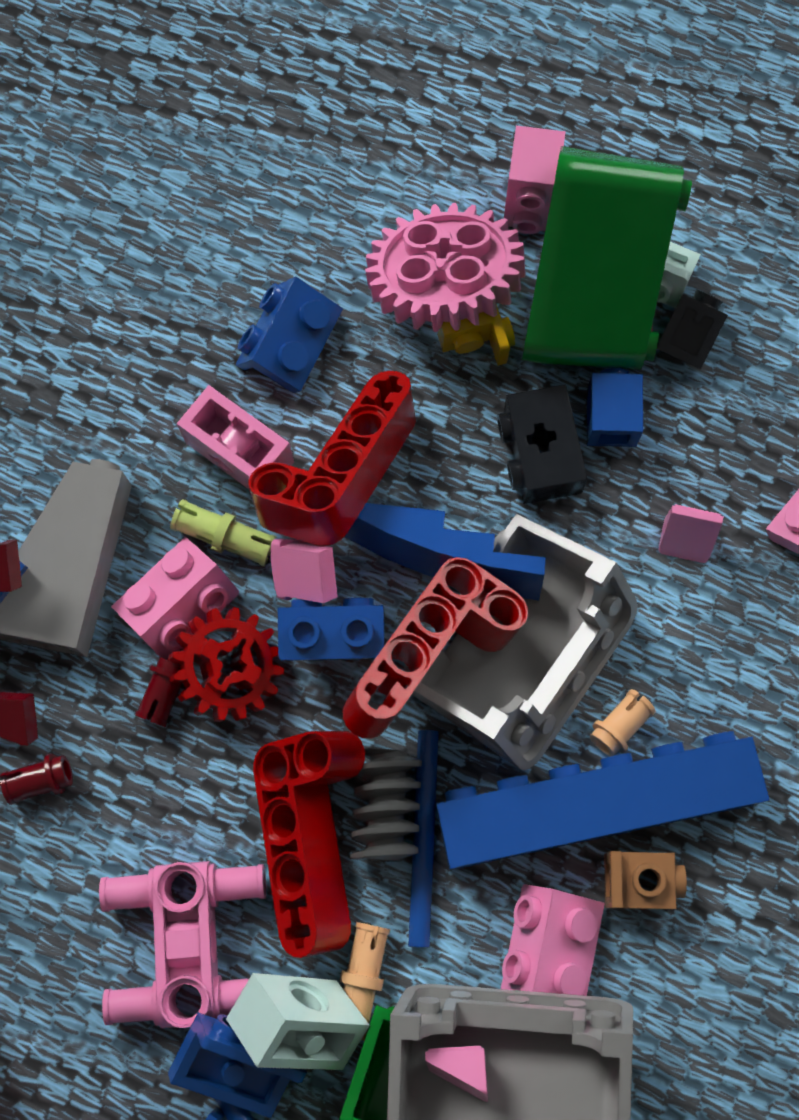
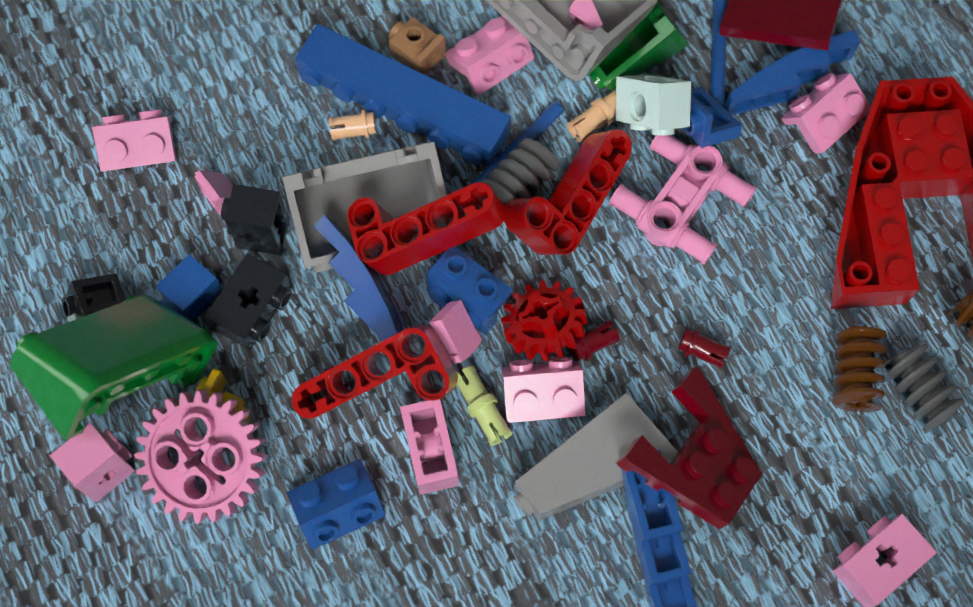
camera: 145 degrees left, 5 degrees down
(612, 514) = (256, 219): none -> black brick

